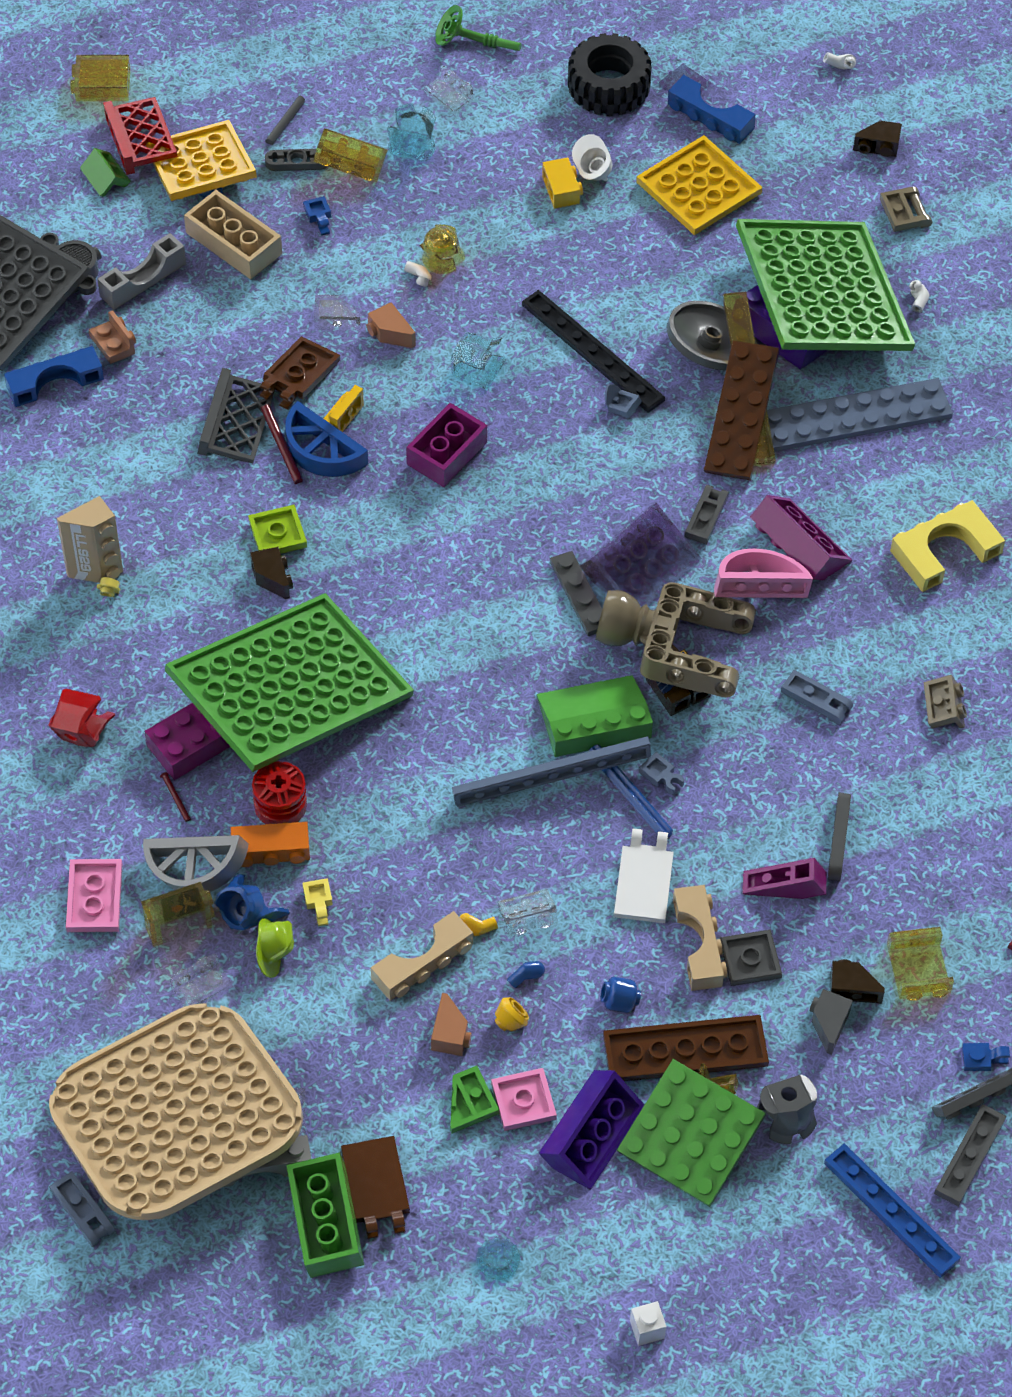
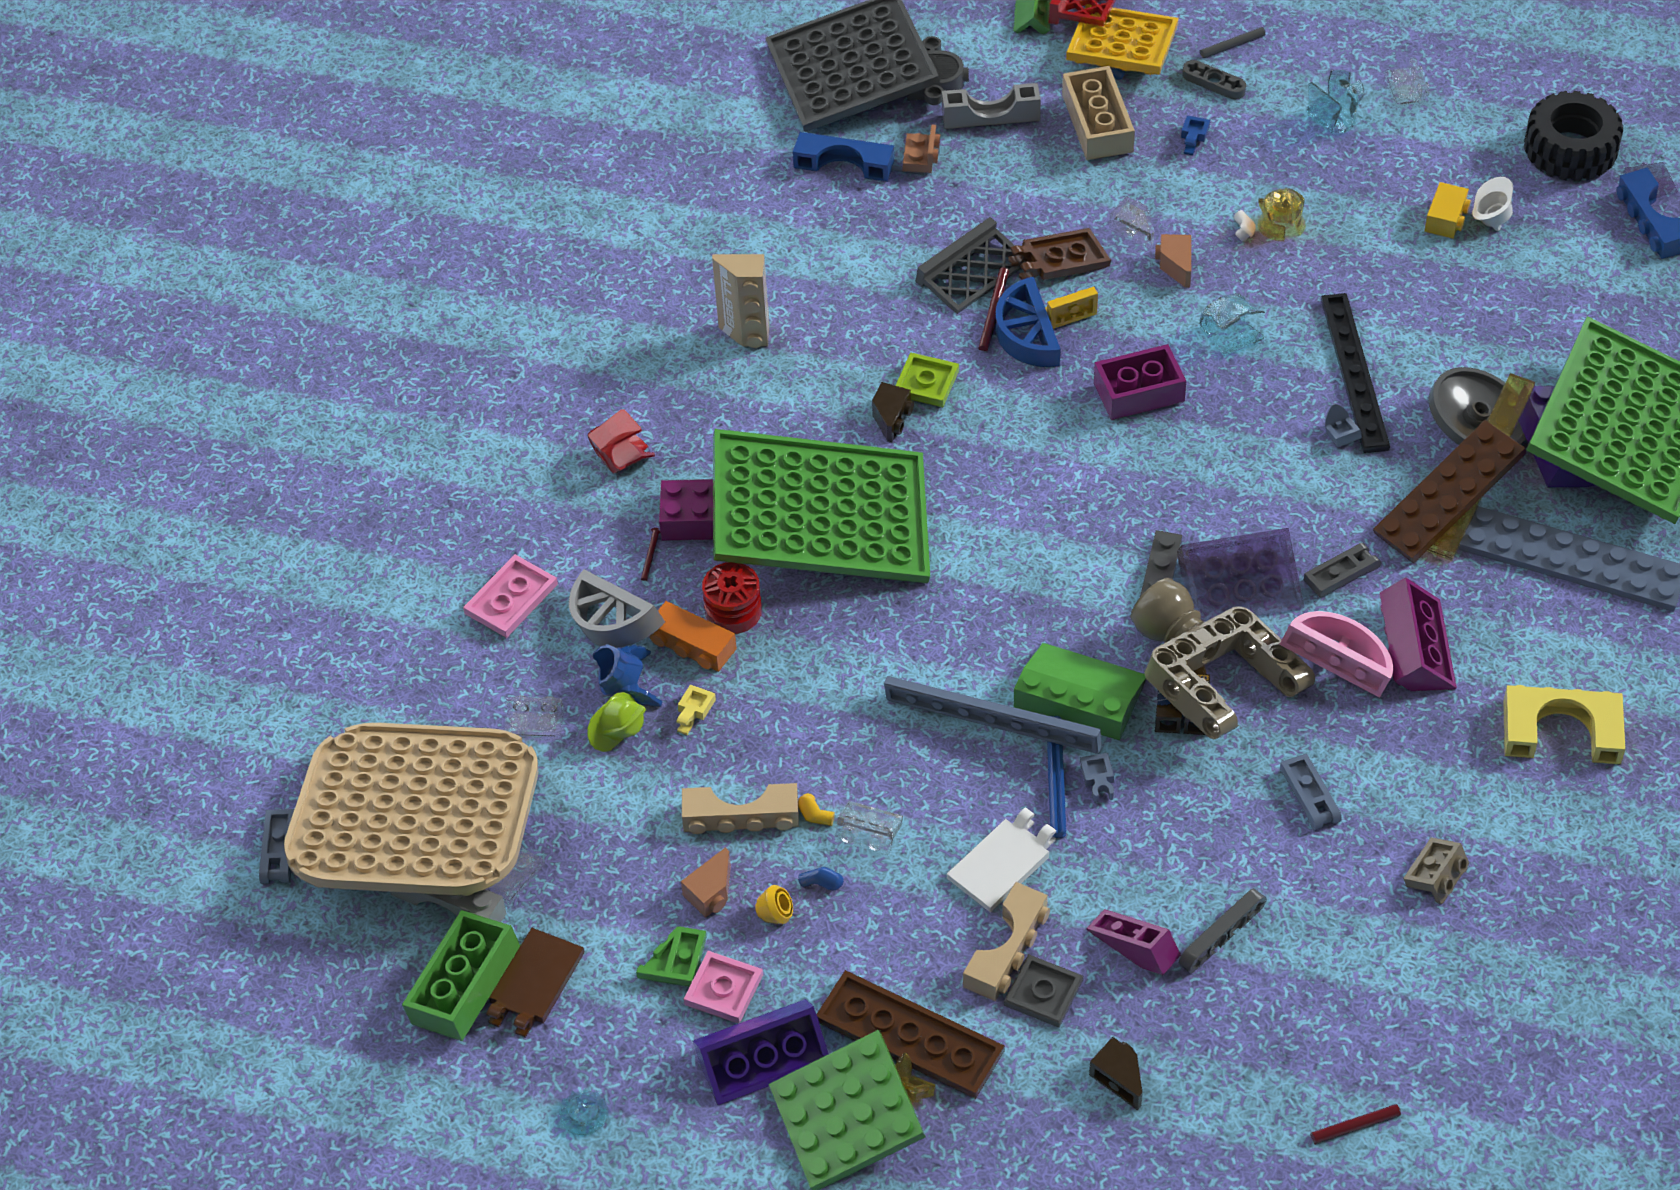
camera: 40 degrees right, 5 degrees down
(108, 587) = (742, 351): light yellow plate -> none
(175, 906) = (557, 638): clear yellow panel -> none
(350, 155) = (1262, 95): clear yellow brick -> none
(448, 24) = (1454, 30): bright green dish -> none
(620, 994) = (888, 948): blue head -> none
(699, 185) = (1586, 275): yellow plate -> none
(791, 1108) = (953, 1145): dark grey piece -> none
(829, 1017) = (1071, 1090): dark grey slope -> none
(919, 963) = (1203, 1094): clear yellow panel -> none

